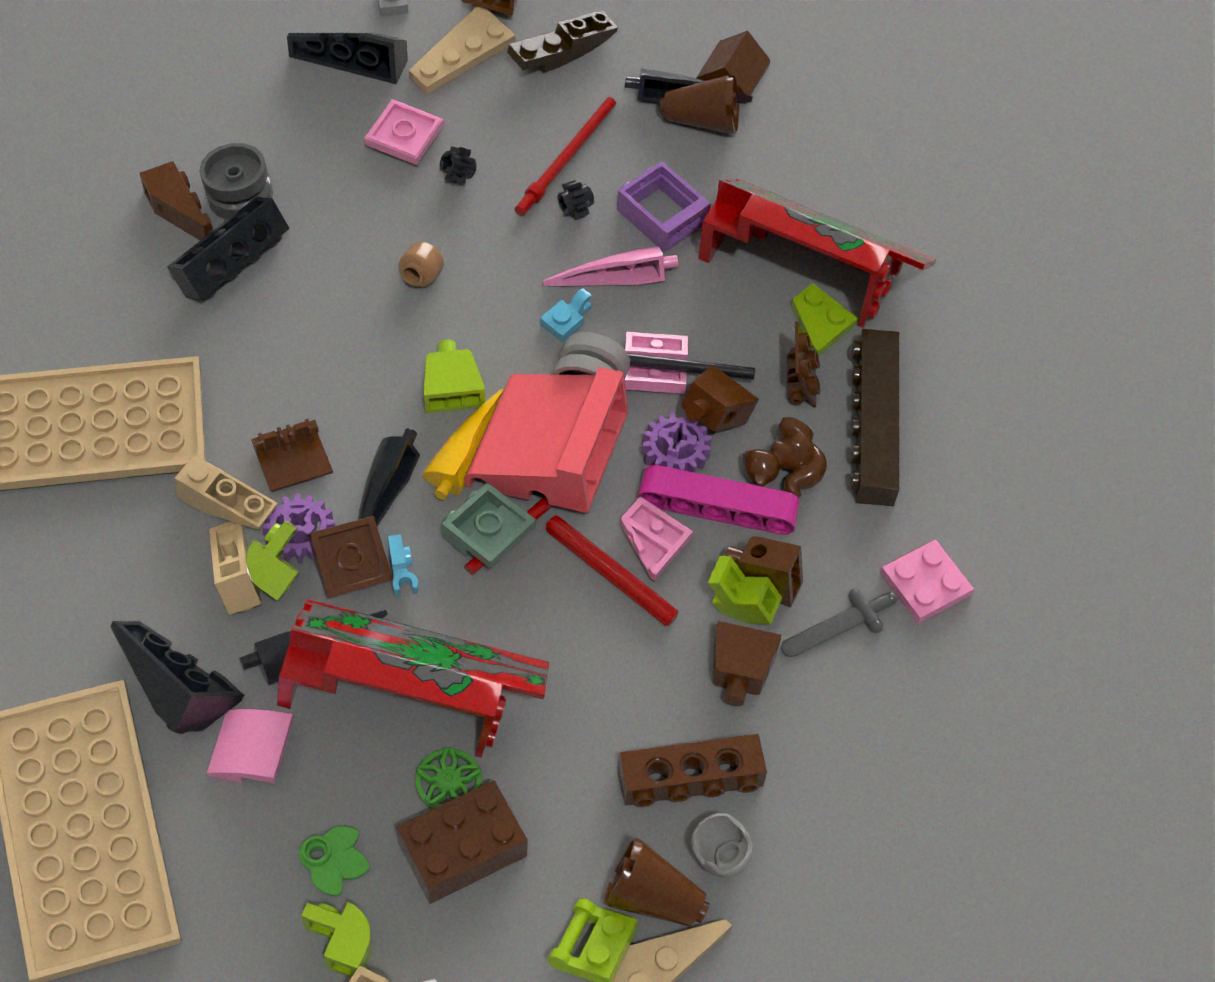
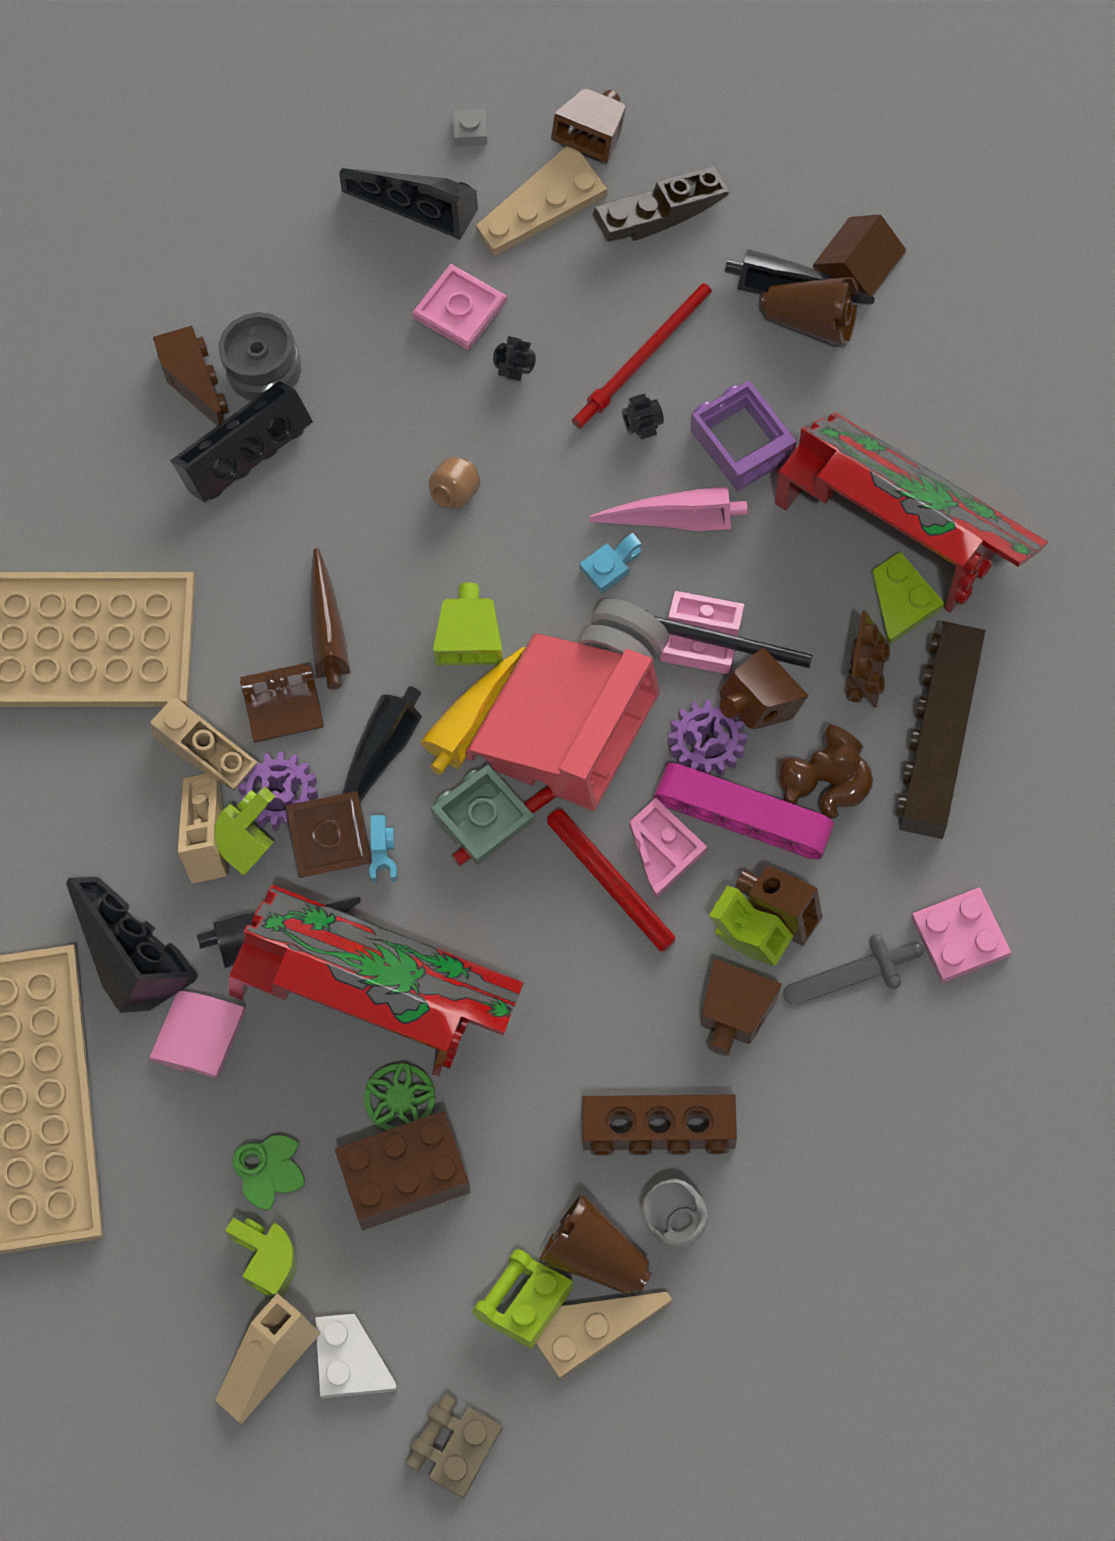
camera: 15 degrees right, 10 degrees up
(323, 392) = (326, 627): none -> reddish brown piece

